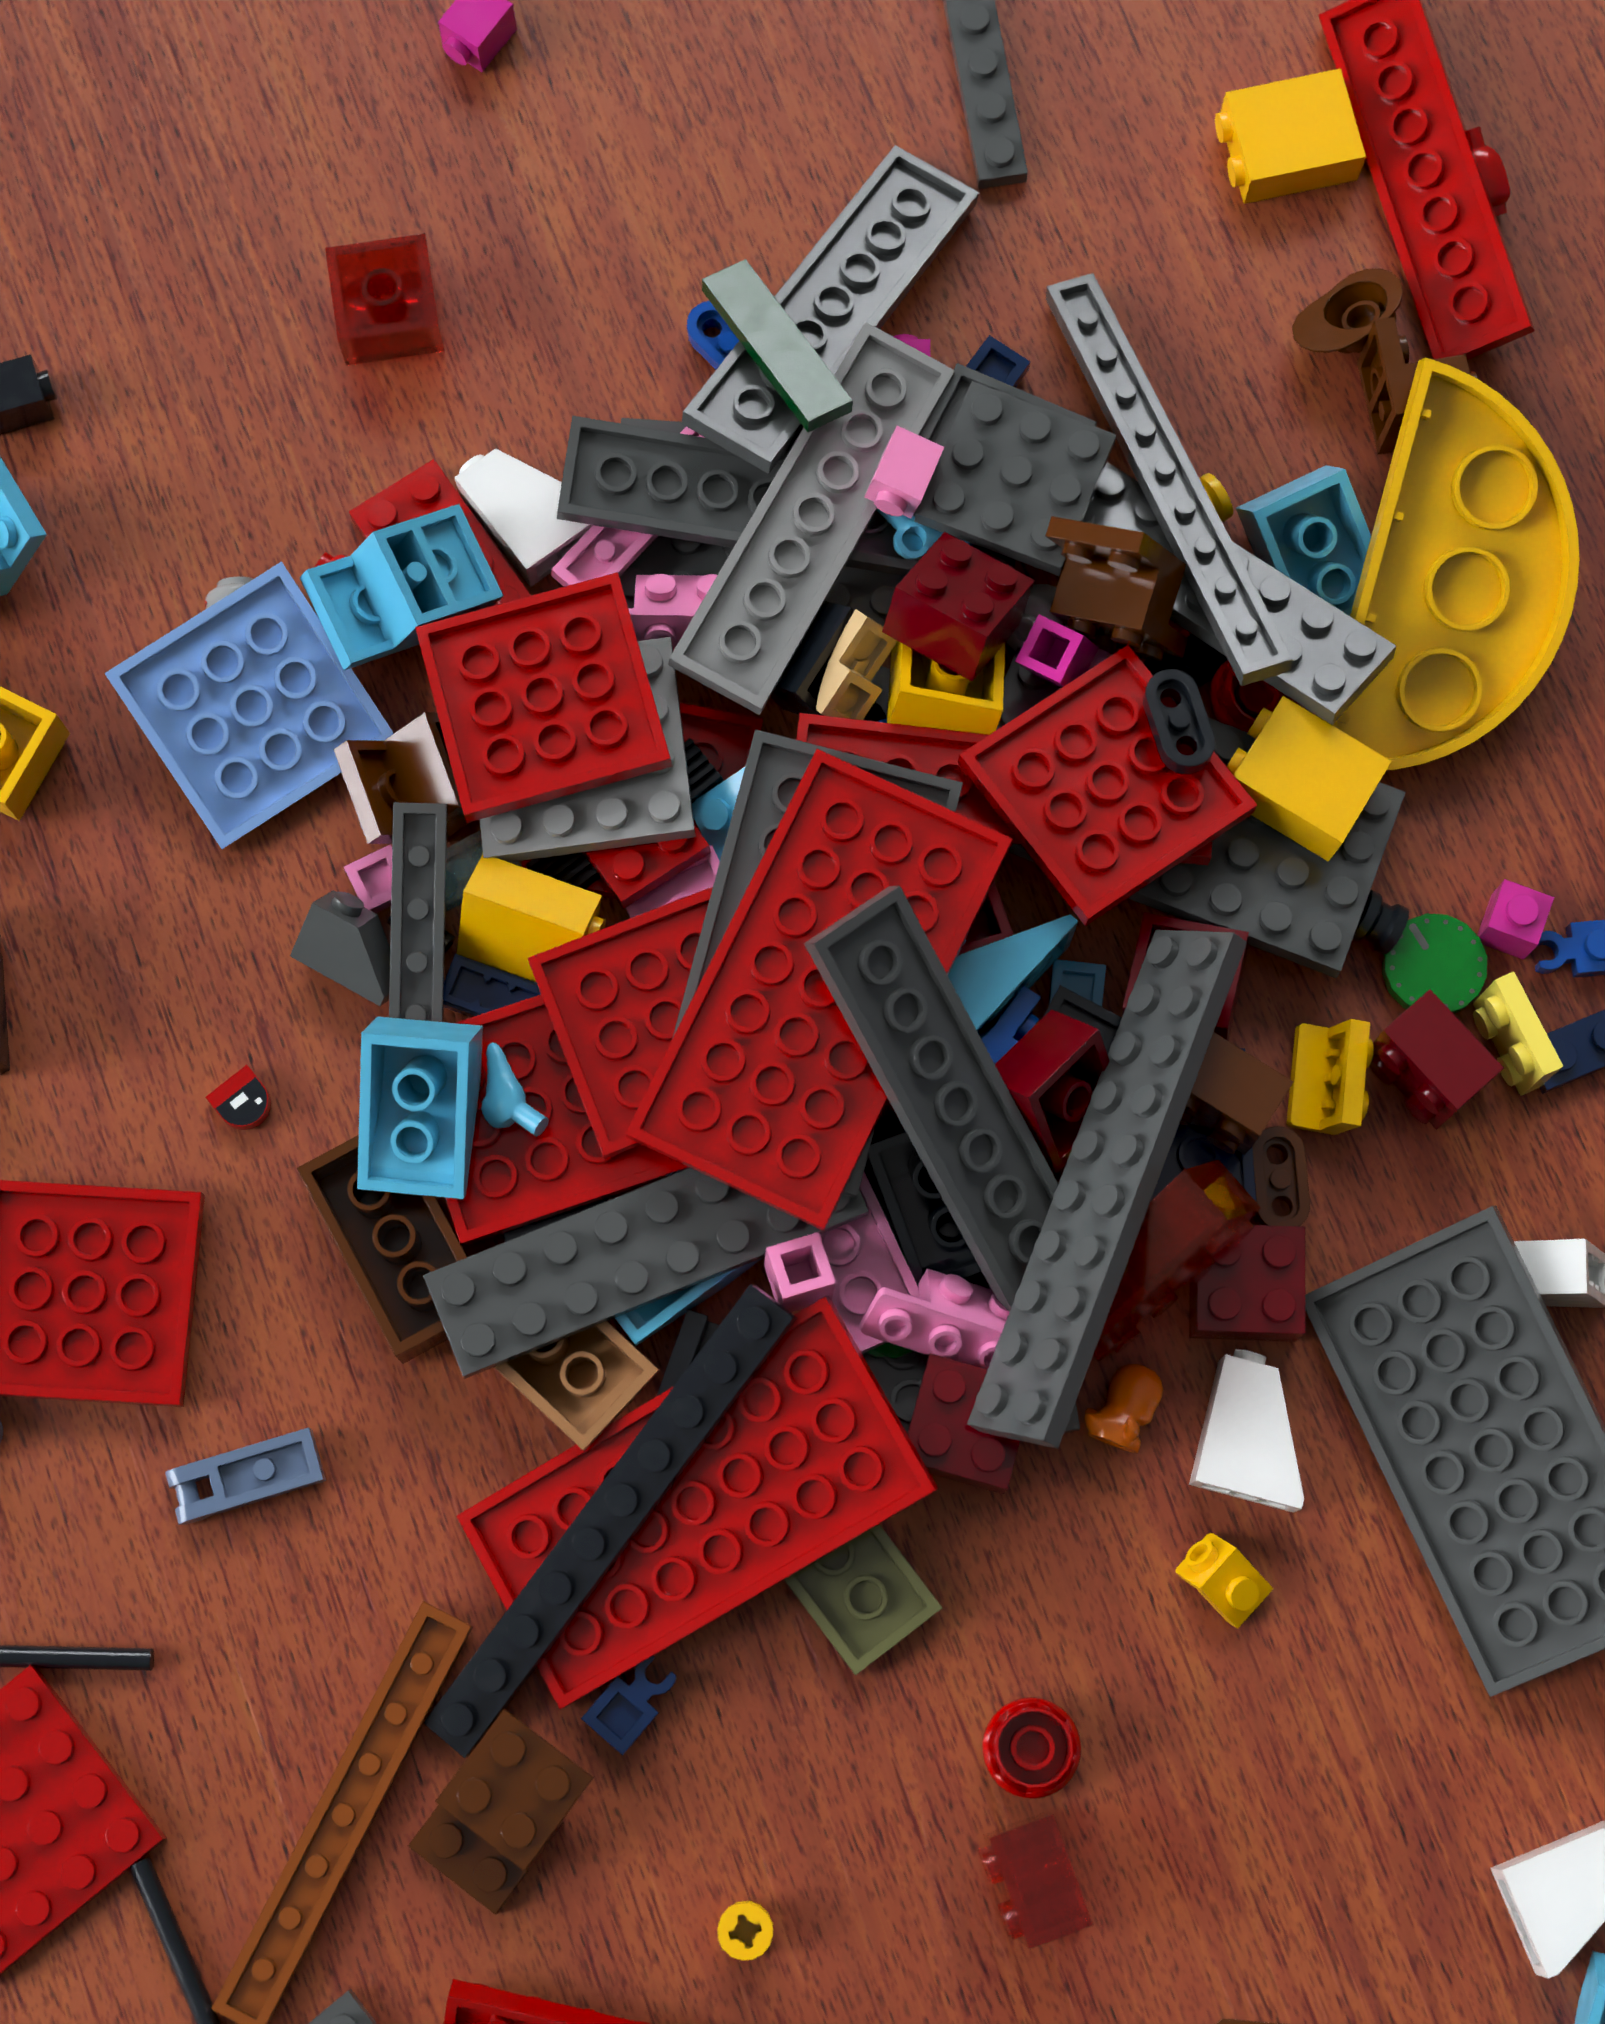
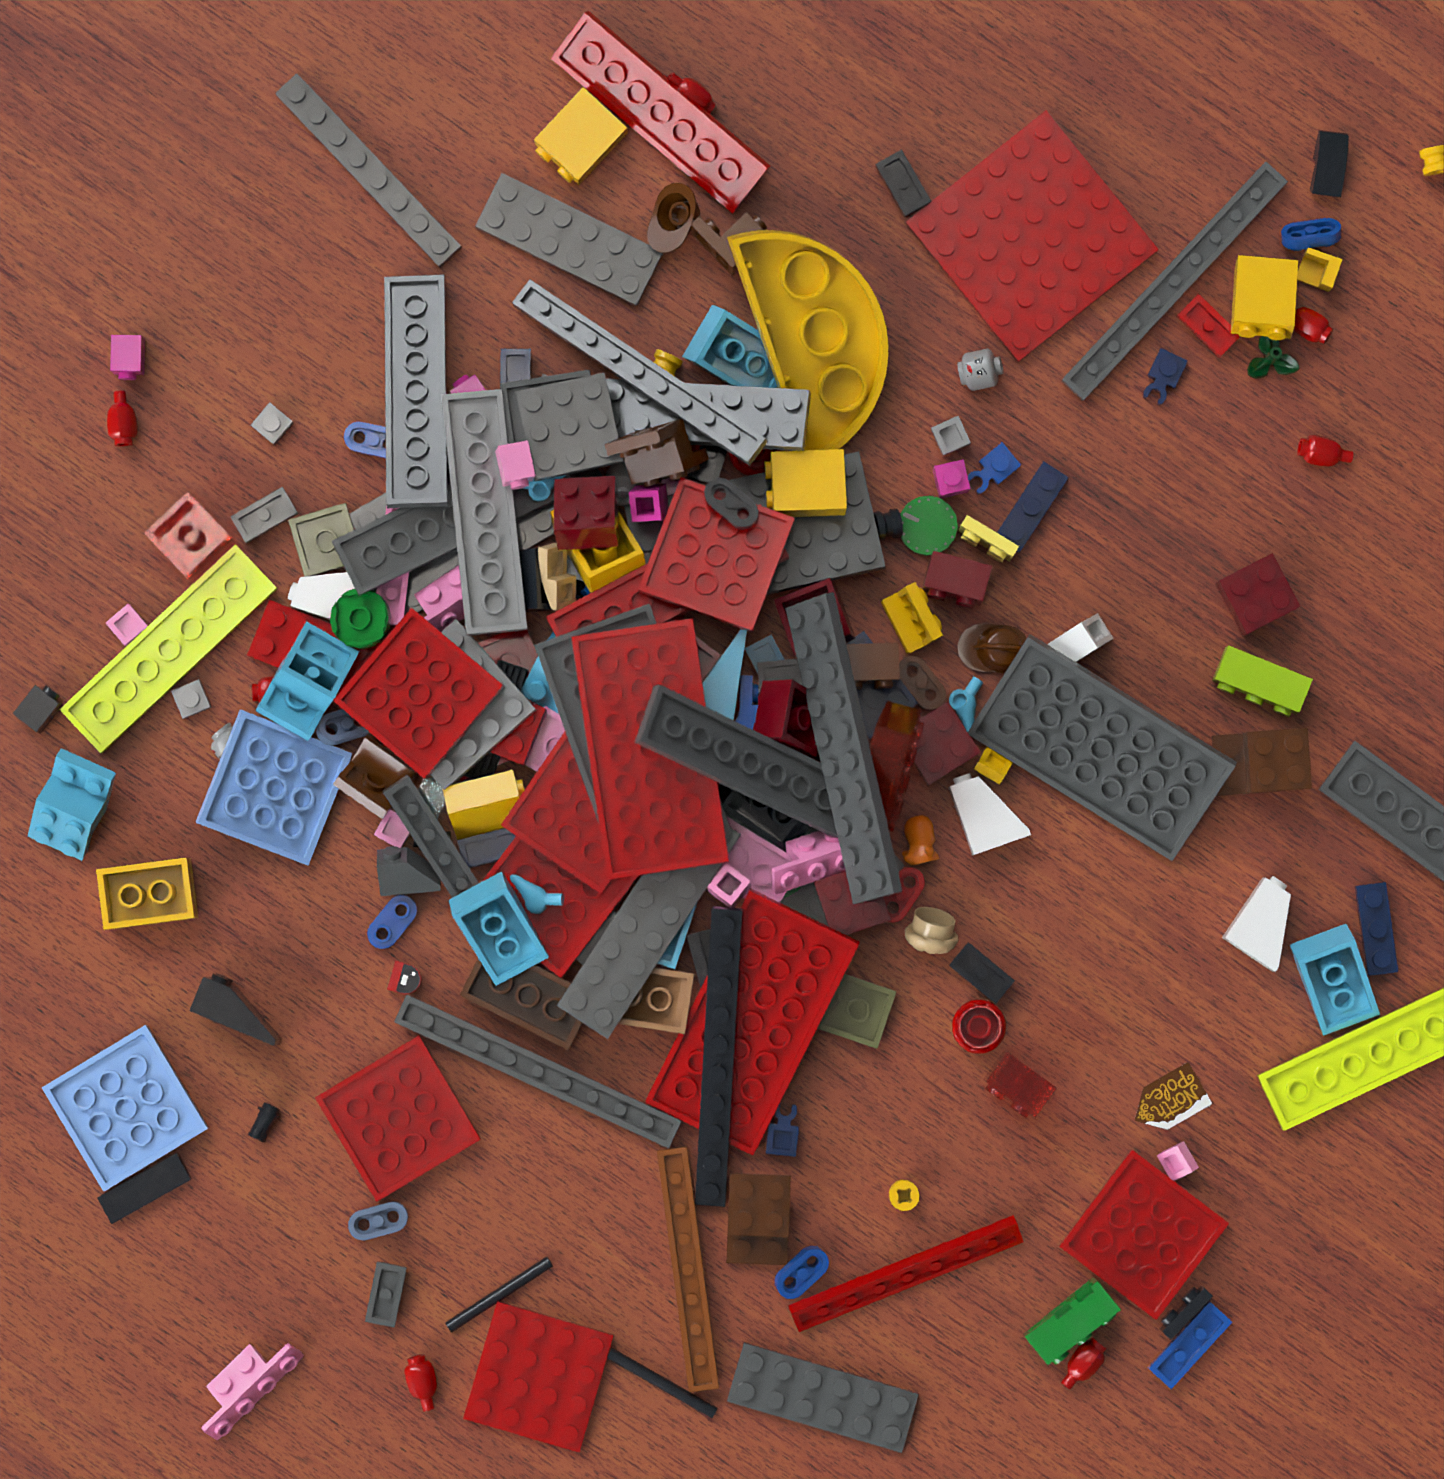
camera: 30 degrees left, 10 degrees up
(217, 366) = (126, 624): none -> bright pink plate
(230, 522) = (191, 699): none -> light grey plate
(247, 434) = (168, 649): none -> neon yellow plate
(247, 1475) = (534, 1149): sand blue plate -> none
(282, 1013) = (392, 921): none -> blue plate
(336, 1367) = (537, 1071): none -> dark grey plate
(407, 103) = (121, 421): none -> red plant
(409, 685) = (343, 726): none -> sand blue plate
(508, 345) = (264, 515): none -> plate
(512, 1945) = (804, 1274): none -> blue plate
(536, 551) = (360, 619): none -> green tile
(546, 418) = (314, 538): none -> plate
(606, 238) = (272, 423): none -> light grey plate
(777, 345) = (407, 437): tile -> none
(1047, 1474) = (908, 895): none -> red plate
(1055, 1553) = (932, 931): none -> tan piece
(1089, 1669) = (981, 972): none -> black plate
(1183, 262) = (568, 239): none -> plate
(1224, 1578) = (1016, 889): yellow bracket -> none
(1308, 1370) = (993, 765): none -> yellow plate
(1327, 1250) = (965, 703): none -> medium azure animal
(1412, 1196) = (990, 647): none -> reddish brown piece
(1551, 861) = (950, 435): none -> light grey plate

